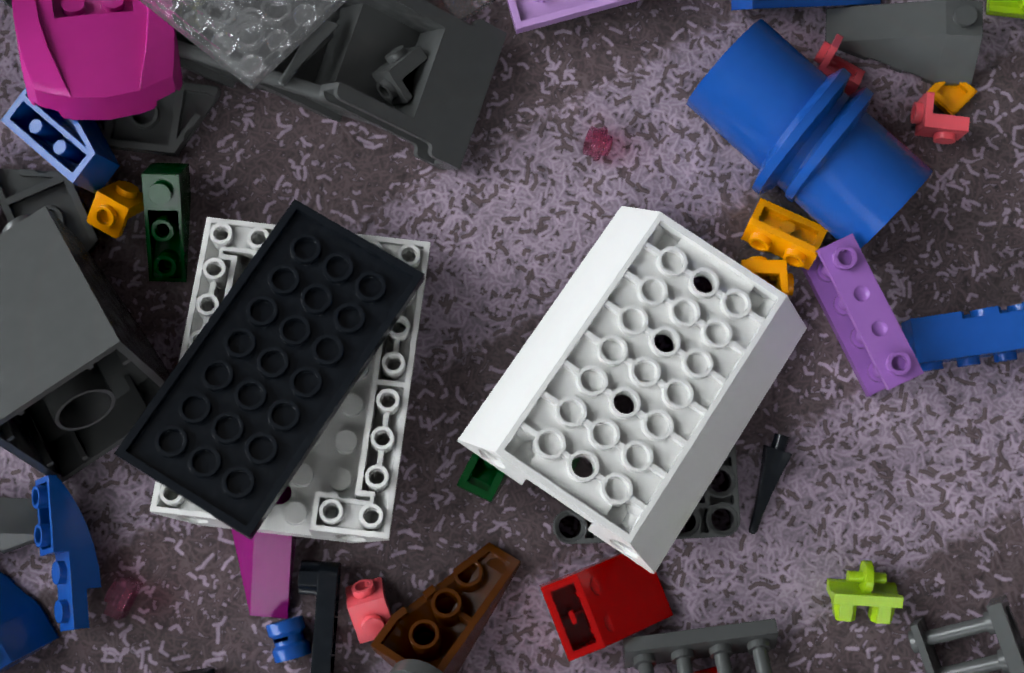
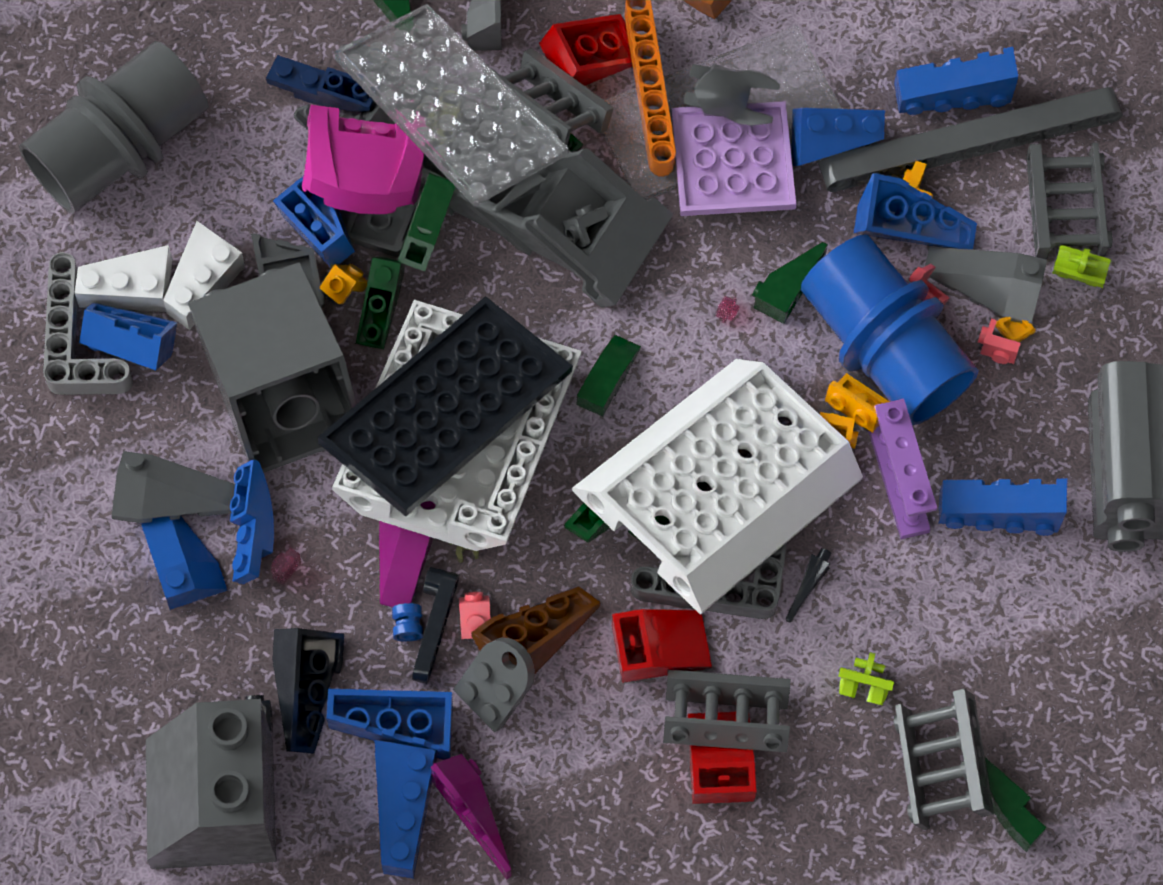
camera: 10 degrees right, 15 degrees down
(198, 114) = (426, 222): none -> dark green slope
(468, 260) = (607, 375): none -> dark green slope
(664, 96) = (783, 286): none -> dark green slope

